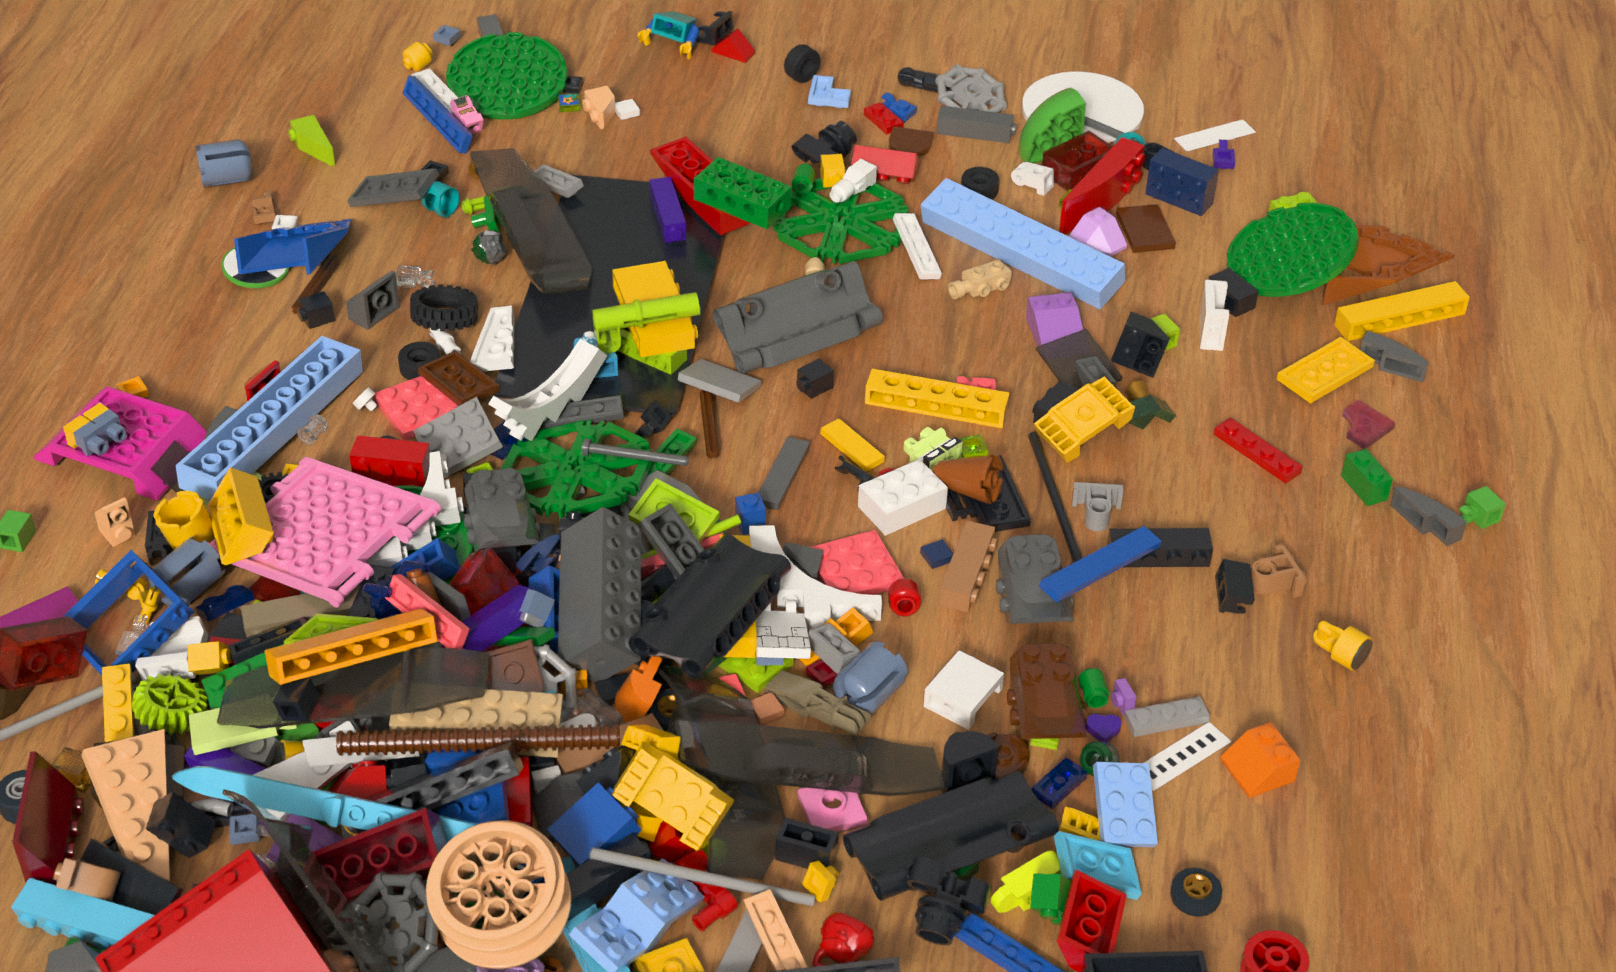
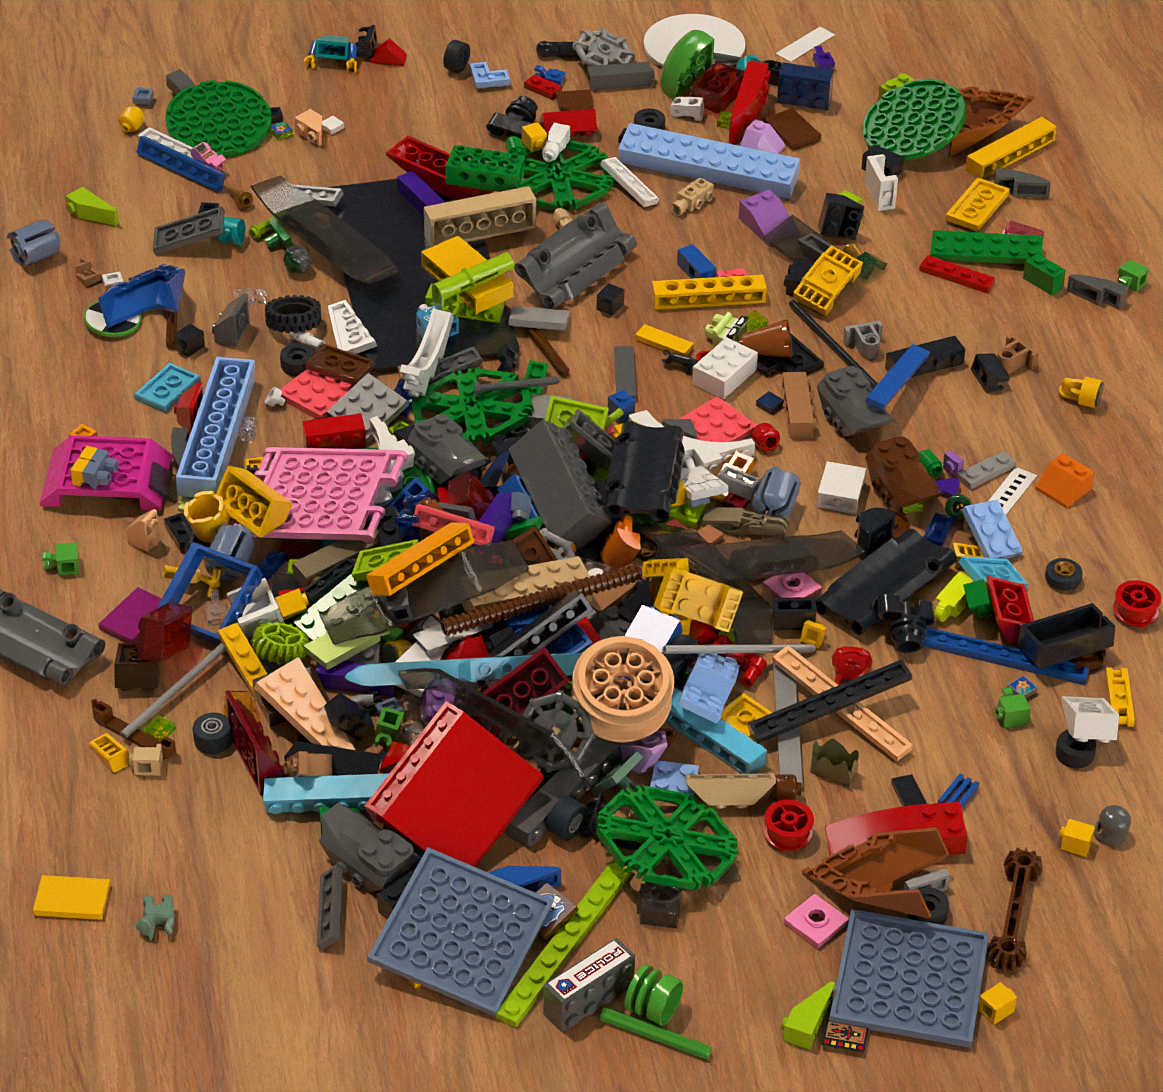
camera: 20 degrees left, 0 degrees up
(219, 850) = (388, 726): none -> bright green brick
(254, 356) = (166, 387): none -> medium azure tile
(714, 246) = (481, 216): none -> tan brick
(939, 359) = (694, 263): none -> blue brick
(1308, 424) = (985, 247): none -> green plate

